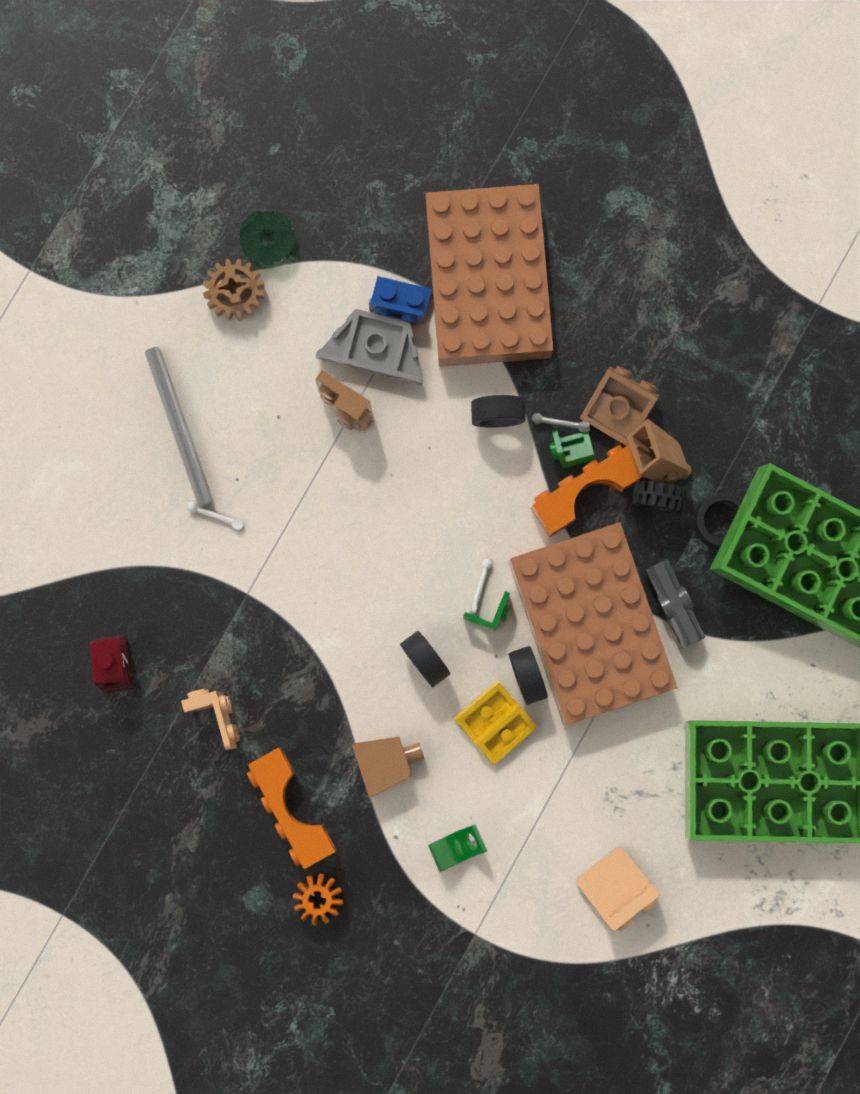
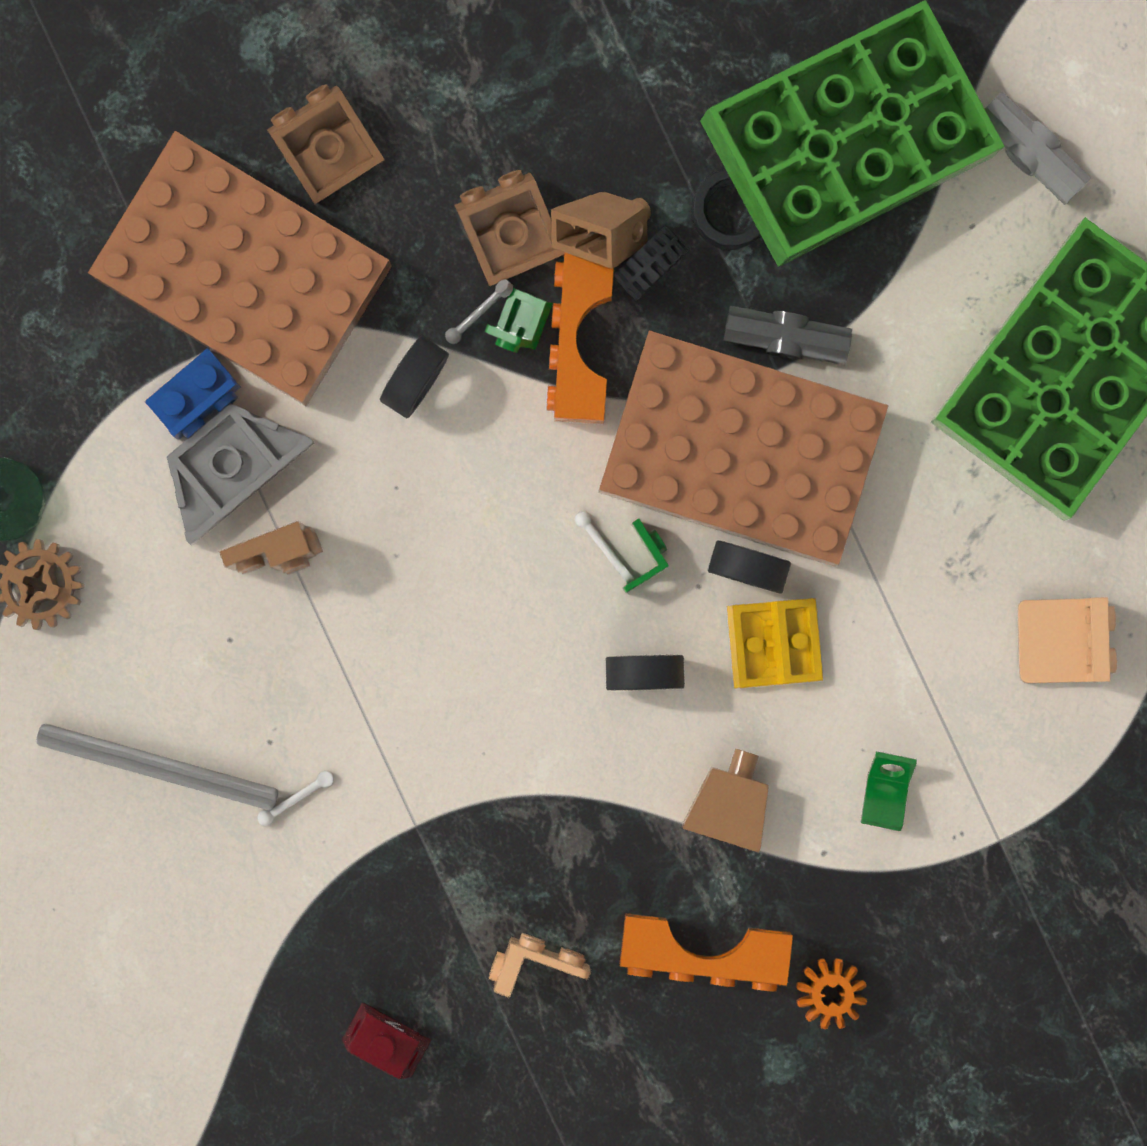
camera: 55 degrees left, 5 degrees up
(592, 271) = (324, 142): none -> medium nougat plate

